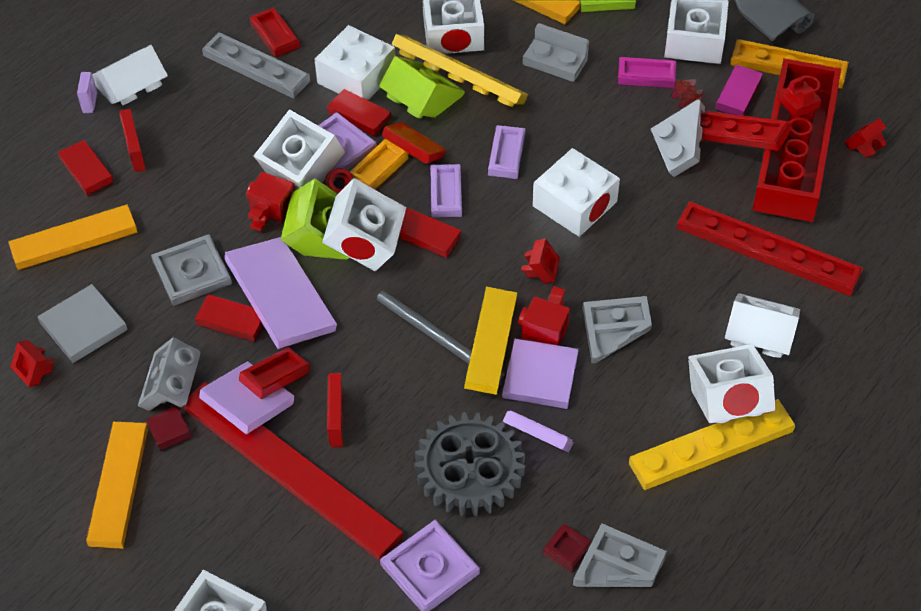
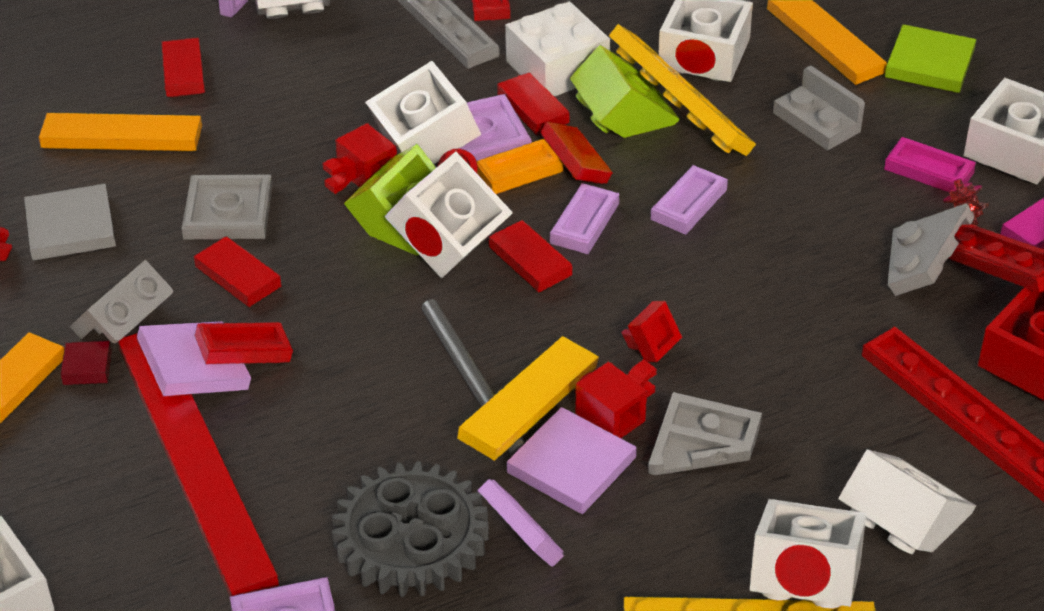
camera: 25 degrees right, 10 degrees down
(132, 140) = (249, 53): red tile -> none
(280, 292) = (309, 262): lavender tile -> none
(335, 410) = (286, 409): red tile -> none
(575, 192) = (744, 266): white brick -> none

